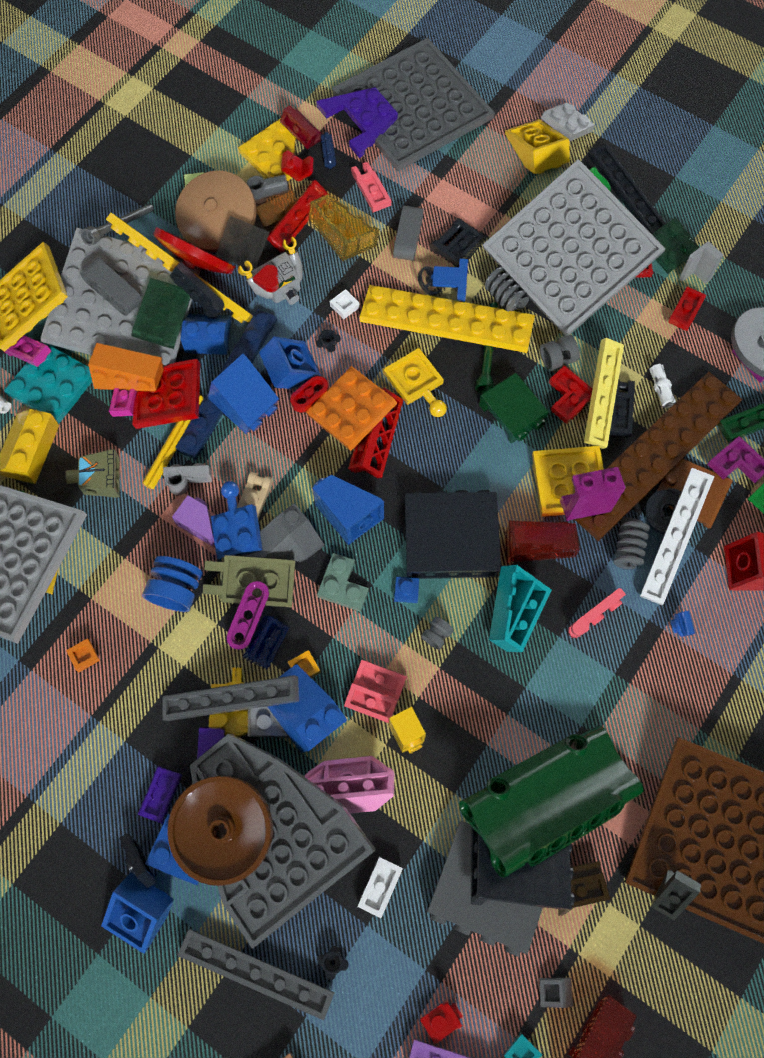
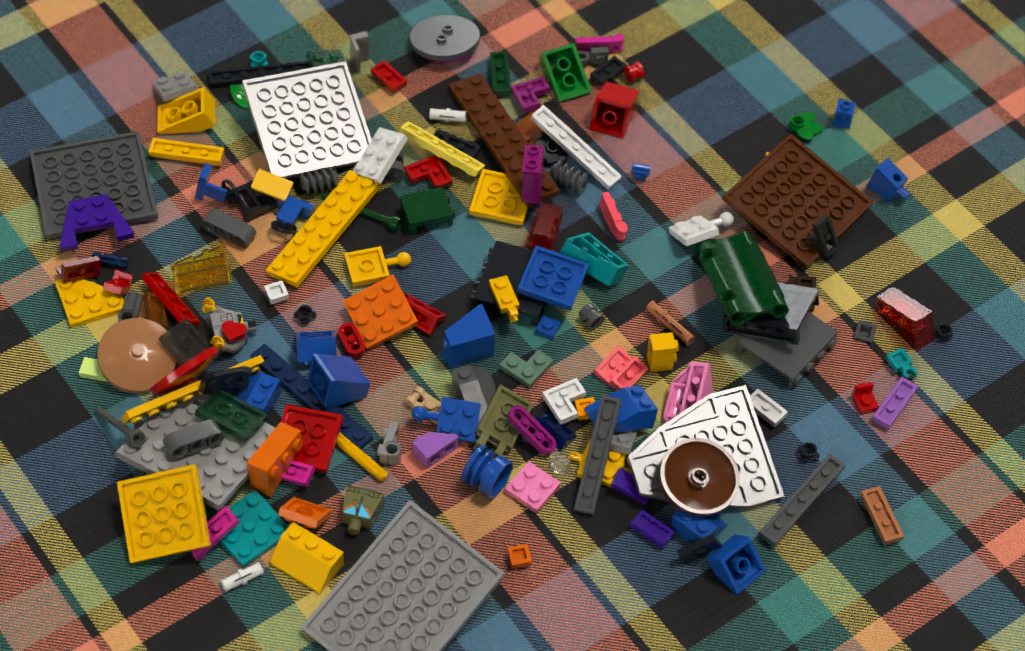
camera: 75 degrees left, 15 degrees down
(72, 422) = (304, 512): none -> orange plate
(181, 641) = (532, 487): none -> bright pink plate
(216, 659) = (559, 463): none -> clear plate
(304, 633) = (560, 399): none -> white plate
(371, 188) = (165, 240): coral hinge -> none
(415, 526) = (505, 297): none -> yellow plate
(450, 190) = (212, 191): none -> blue piece
(462, 569) = (553, 278): none -> blue plate
(465, 729) = (686, 336): none -> nougat pin
(469, 246) = (272, 185): none -> yellow panel
(490, 163) = (186, 151): none -> yellow plate
(560, 332) = (380, 154): none -> white plate
(621, 722) = (699, 228): none -> white plate
(646, 181) = (258, 59): none -> teal plate

